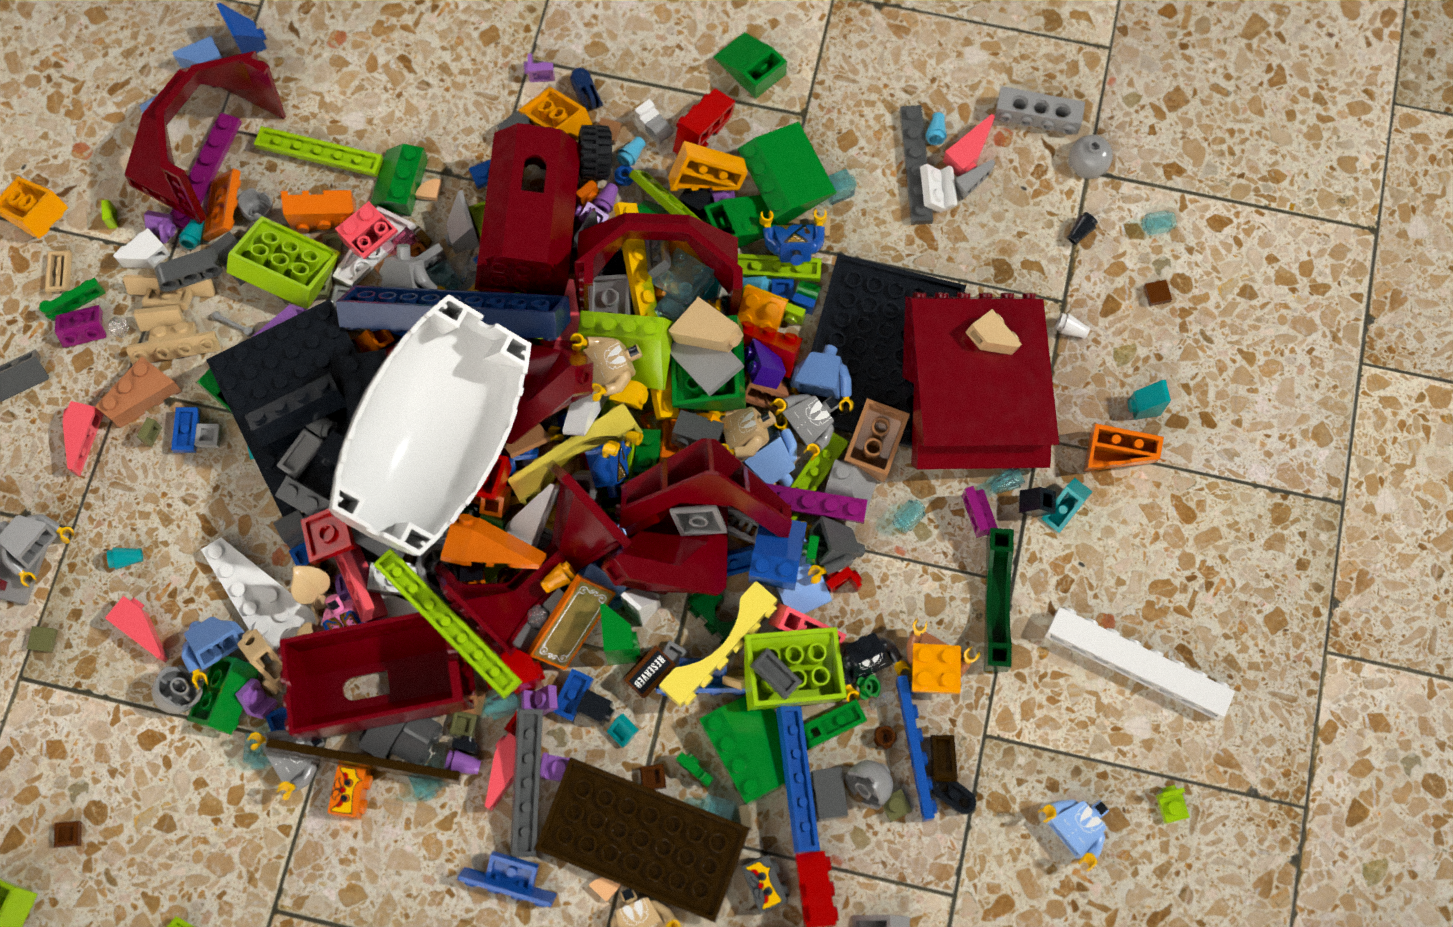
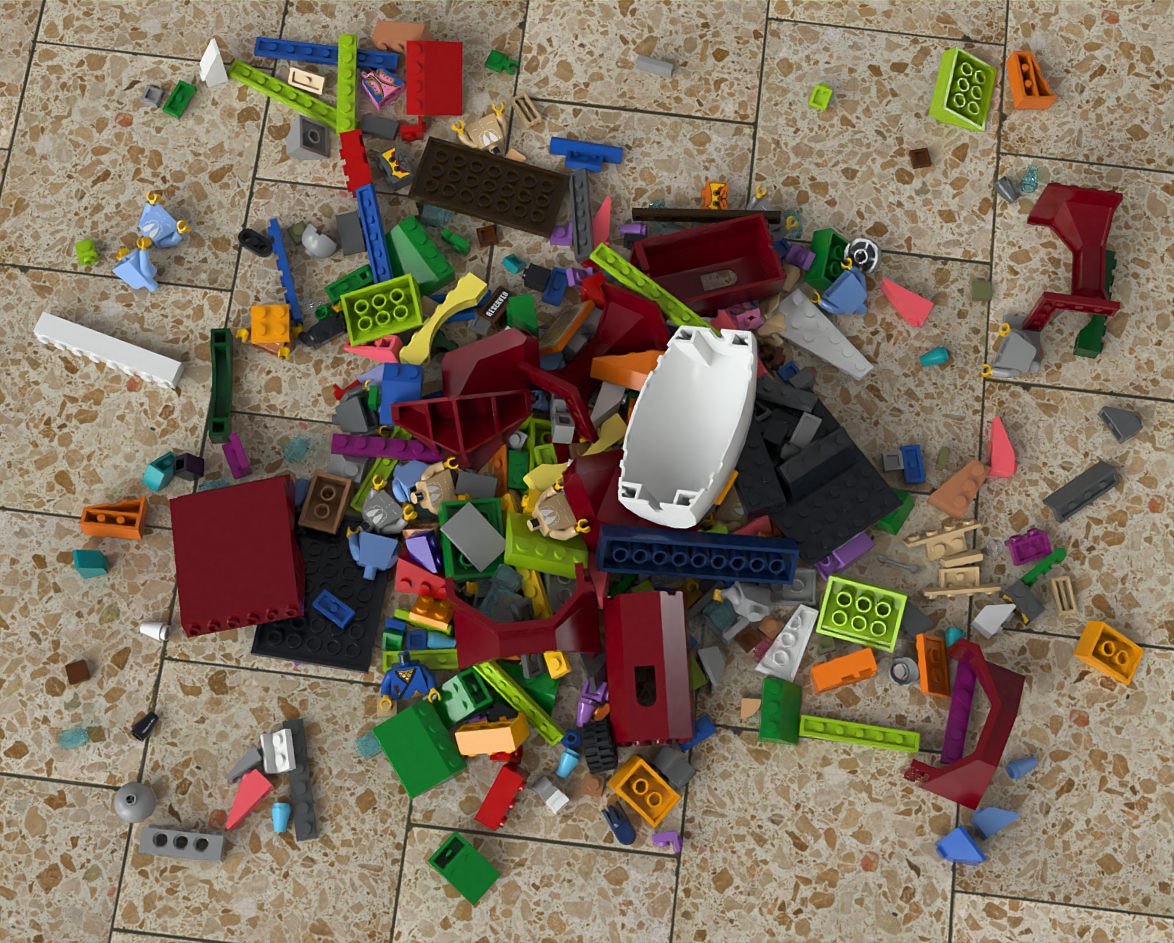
camera: 170 degrees right, 0 degrees up
(104, 263) = (1026, 604): none -> dark grey brick
(109, 214) = (1033, 651): lime tile -> none
(160, 224) = (987, 644): medium lavender bracket -> none
(188, 270) = (943, 593): dark grey beam -> none
(255, 647) = (802, 282): tan torso -> none
(326, 536) = (771, 367): red plate -> none
(365, 231) = (793, 644): coral slope -> none
(422, 236) = (746, 658): dark brown tile -> none
(537, 616) = (589, 329): clear plate -> none
(560, 576) = (575, 357): light orange cone -> none
(609, 463) = (545, 440): blue torso -> none
(706, 328) = (474, 555): tan slope -> none
(776, 673) = (395, 298): dark grey tile -> none
(872, 319) = (333, 609): none -> blue plate
(885, 743) = (309, 275): reddish brown plate -> none
(901, 468) = (301, 491): none -> medium blue cone
(943, 758) = (263, 266): dark brown tile -> none
(993, 335) = (227, 575): tan slope -> none
(1111, 764) = (136, 266): none -> light blue torso

